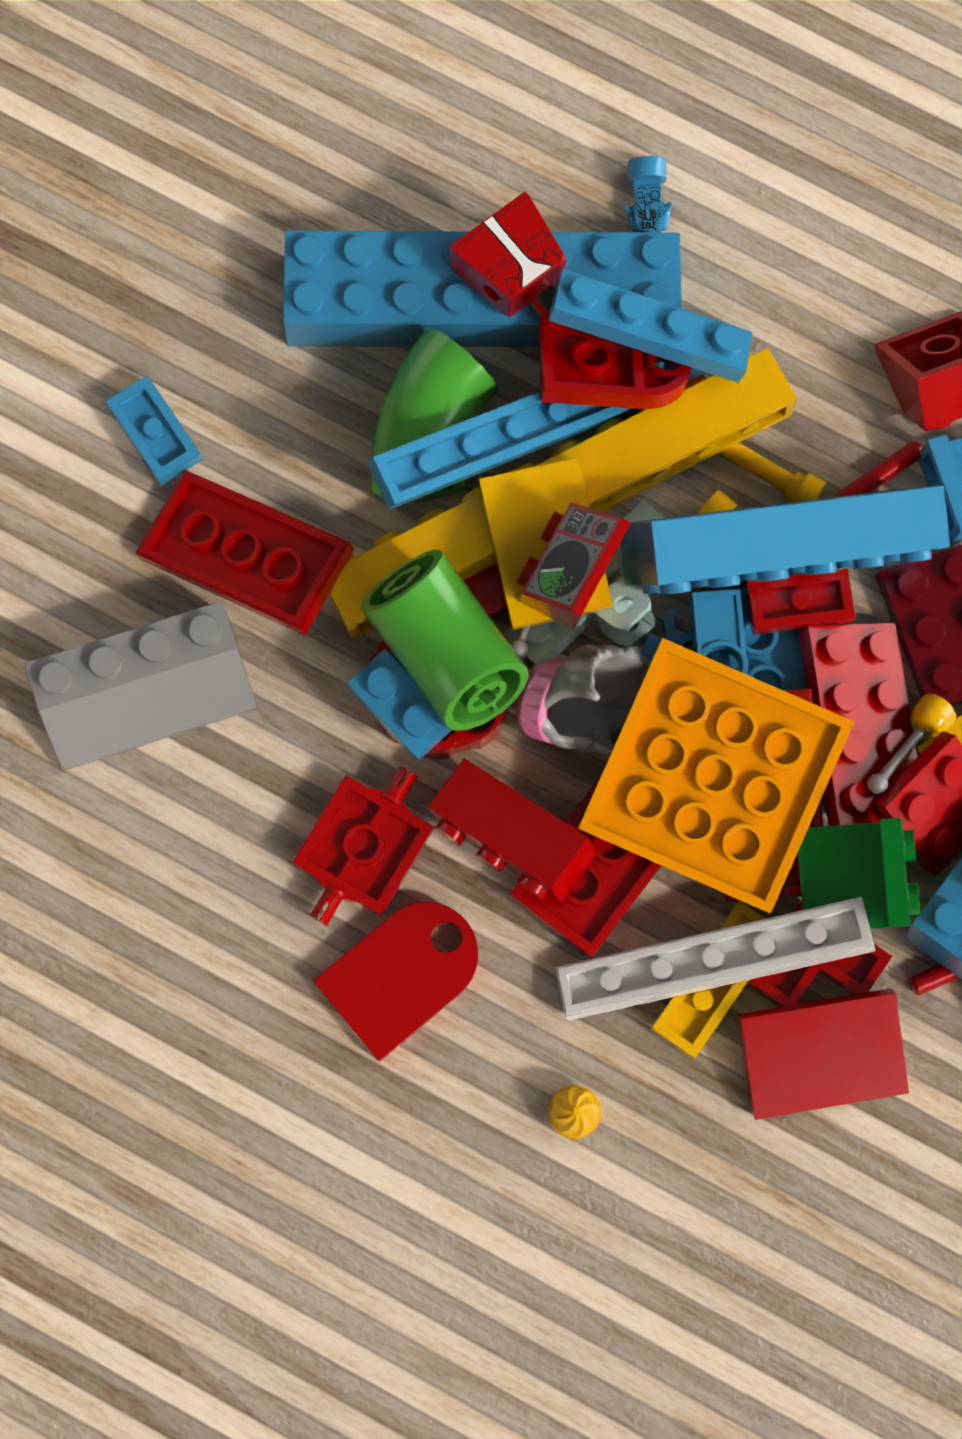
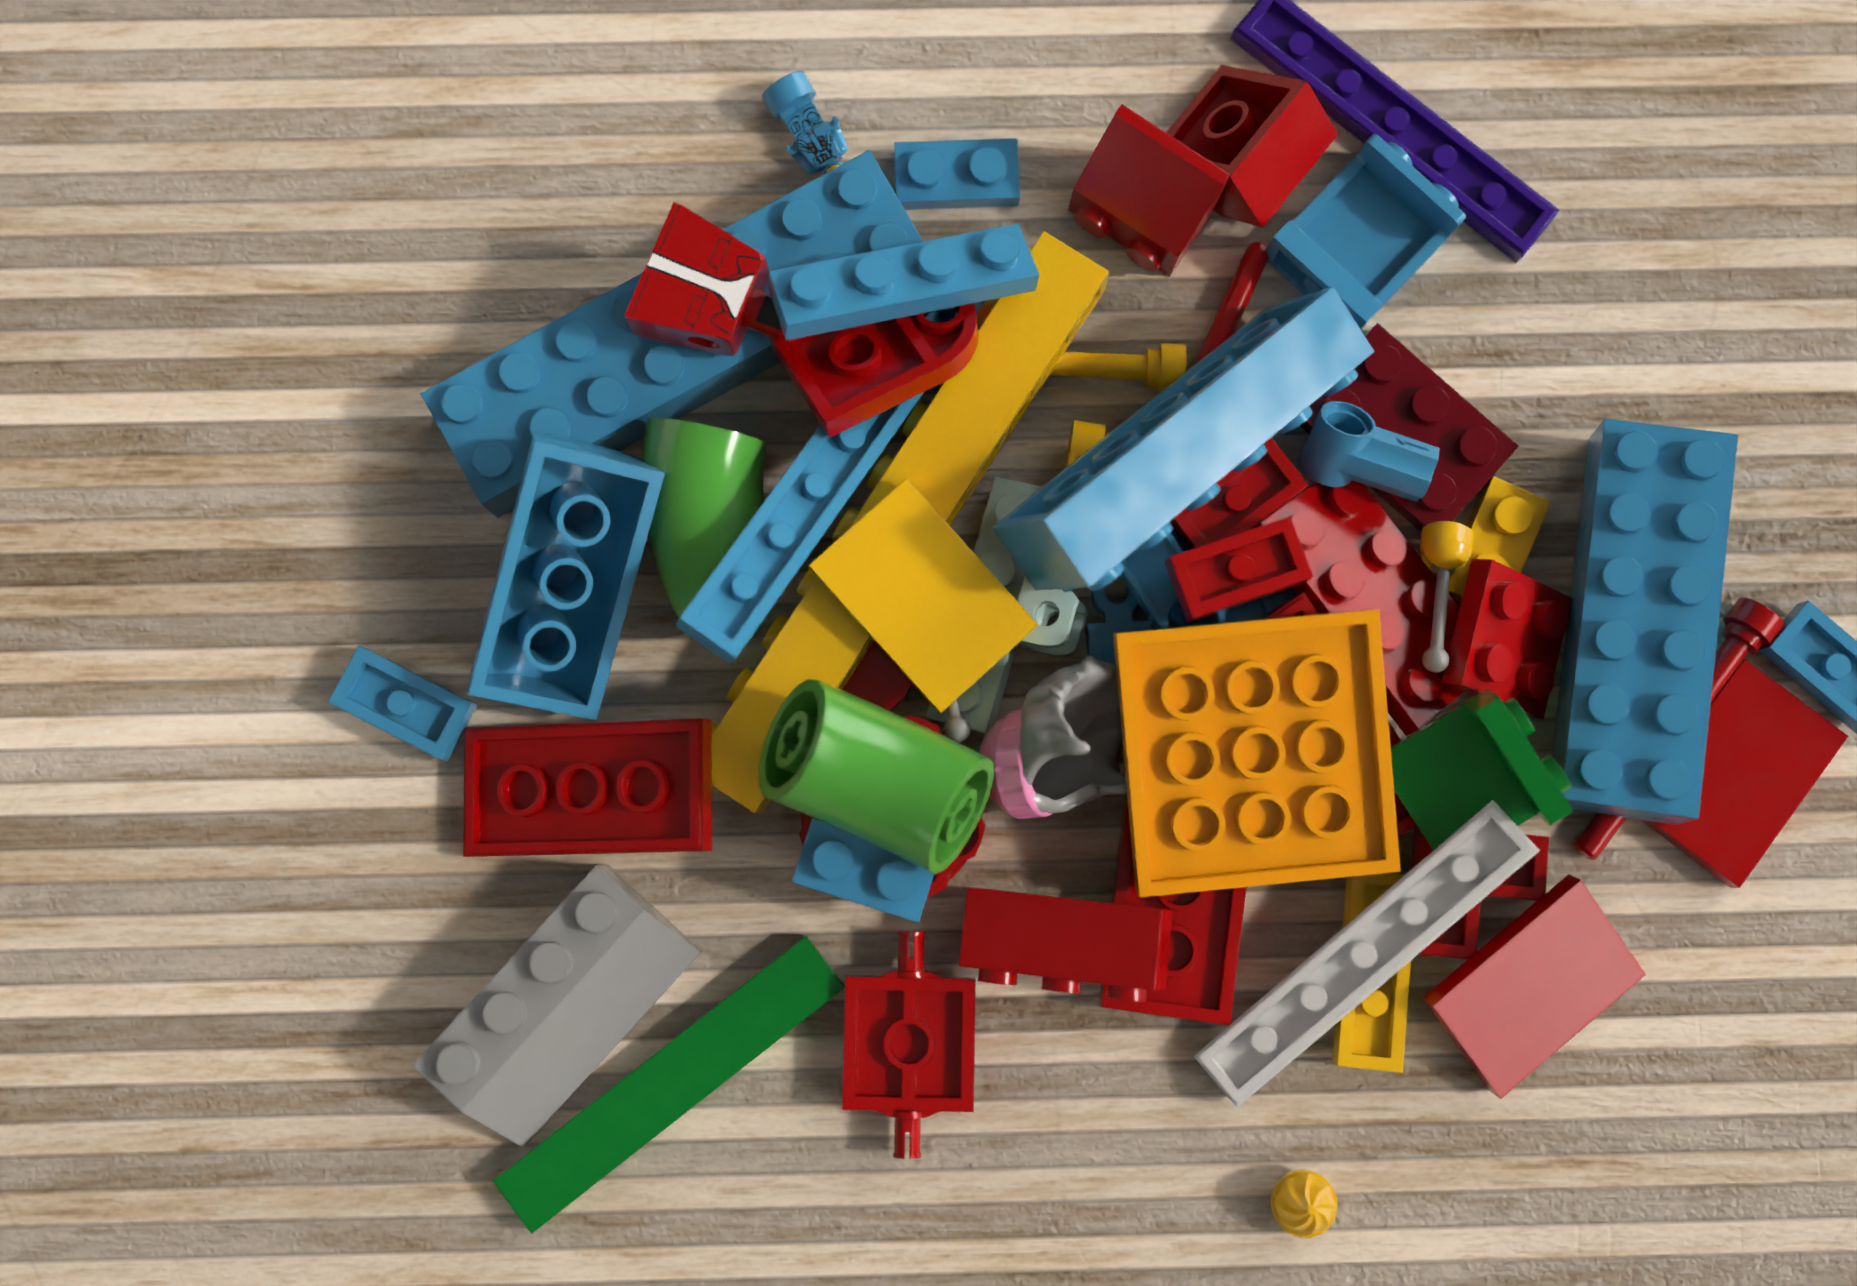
camera: 30 degrees left, 5 degrees up
(185, 782) = (668, 1084): none -> green tile
(310, 400) = (565, 577): none -> dark azure brick
(397, 976) = (1030, 1164): red tile -> none
(572, 563) = (974, 609): slope -> none
(733, 285) = (957, 173): none -> dark azure plate
(773, 644) = (1238, 569): none -> red plate
(855, 364) = (1146, 192): none -> red slope
(900, 610) = (1350, 447): none -> dark azure piece

